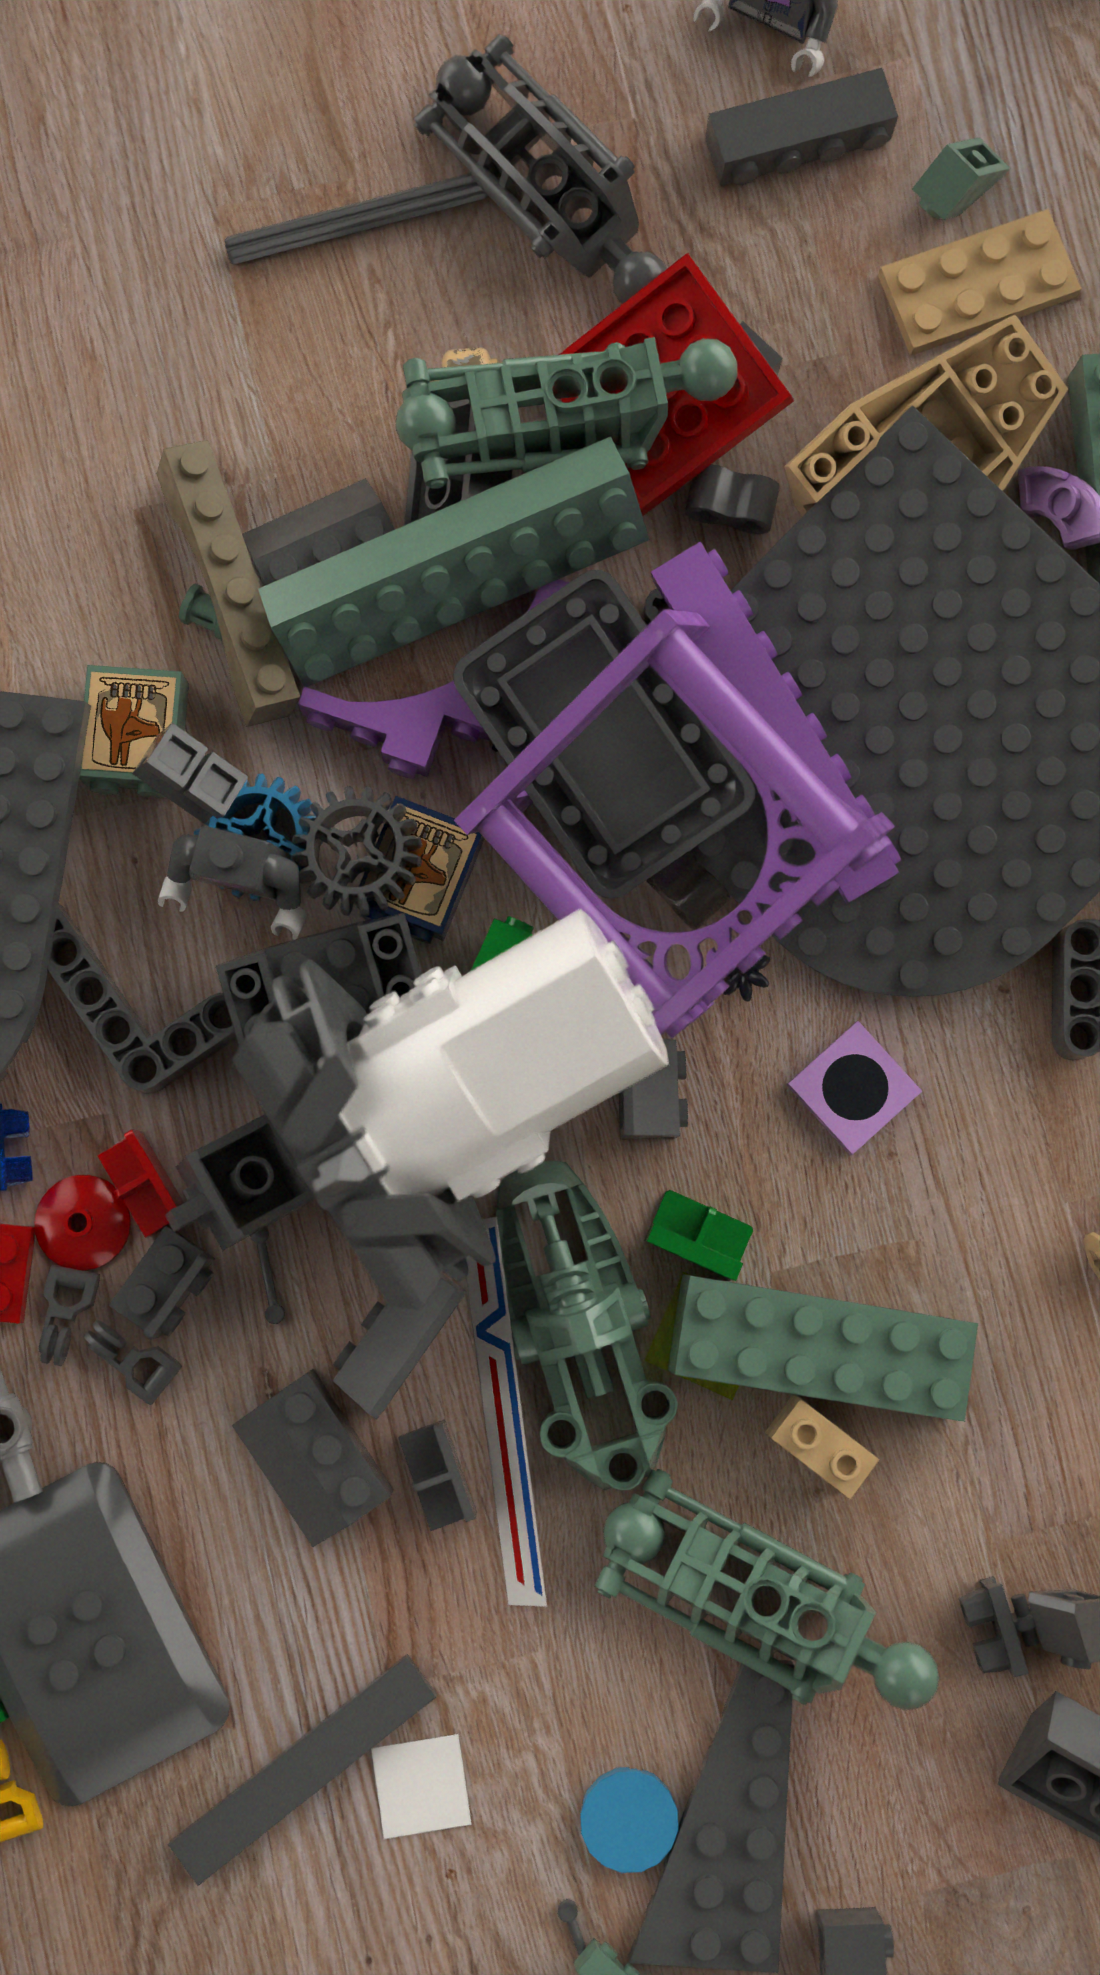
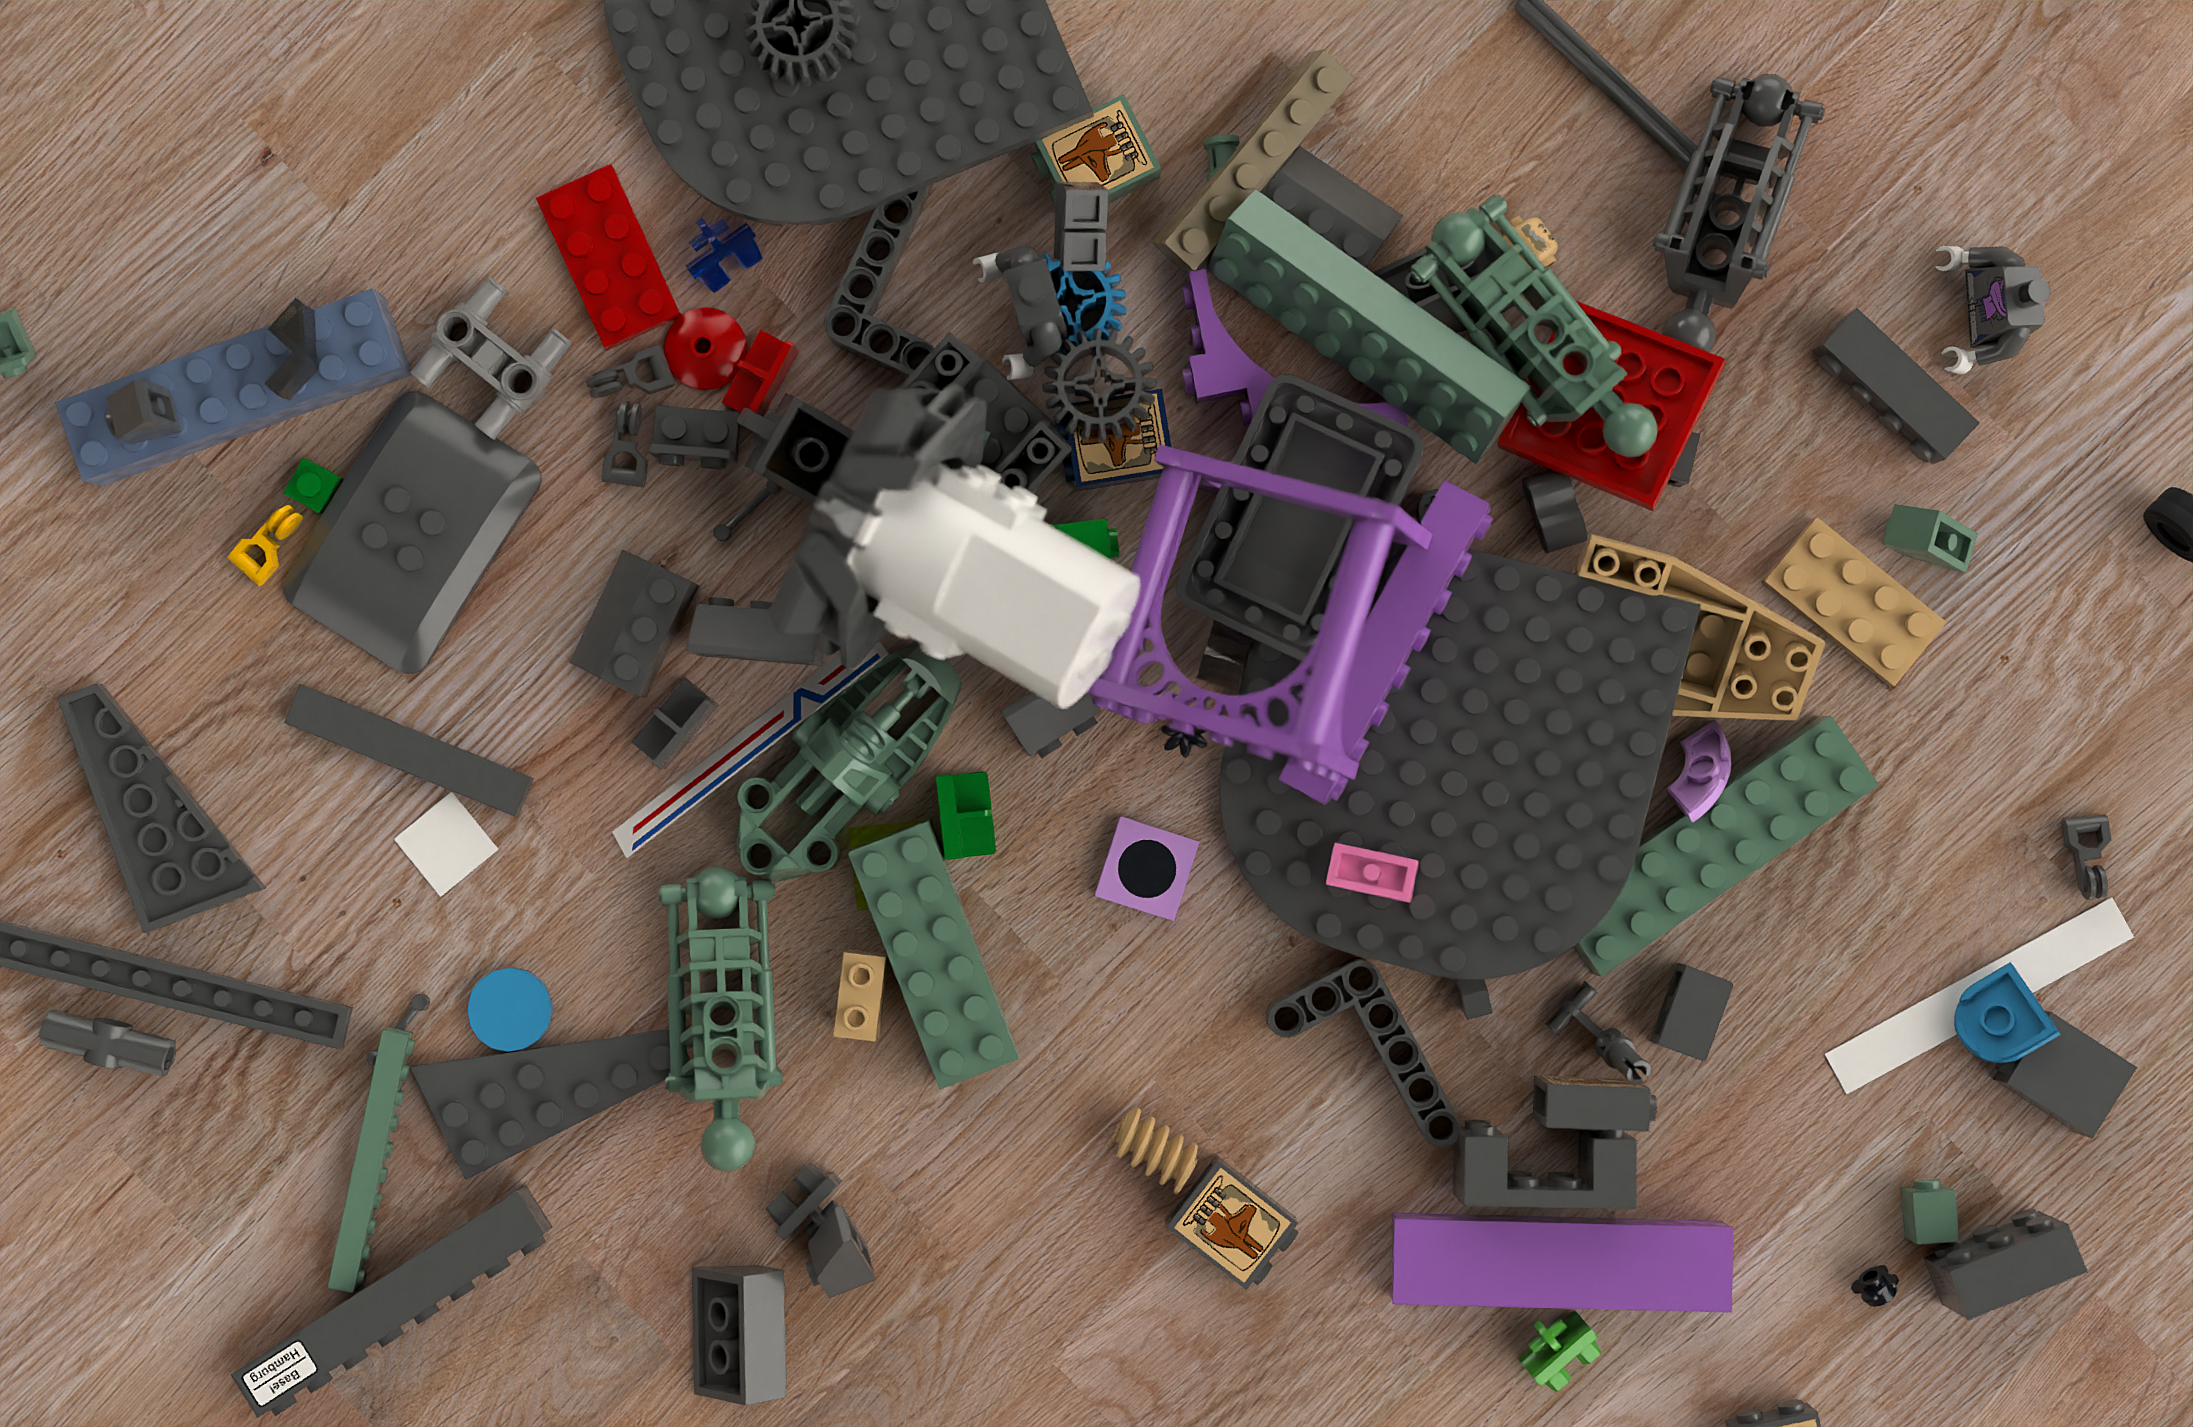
camera: 65 degrees right, 5 degrees up
(990, 866) = (1372, 872): none -> bright pink panel

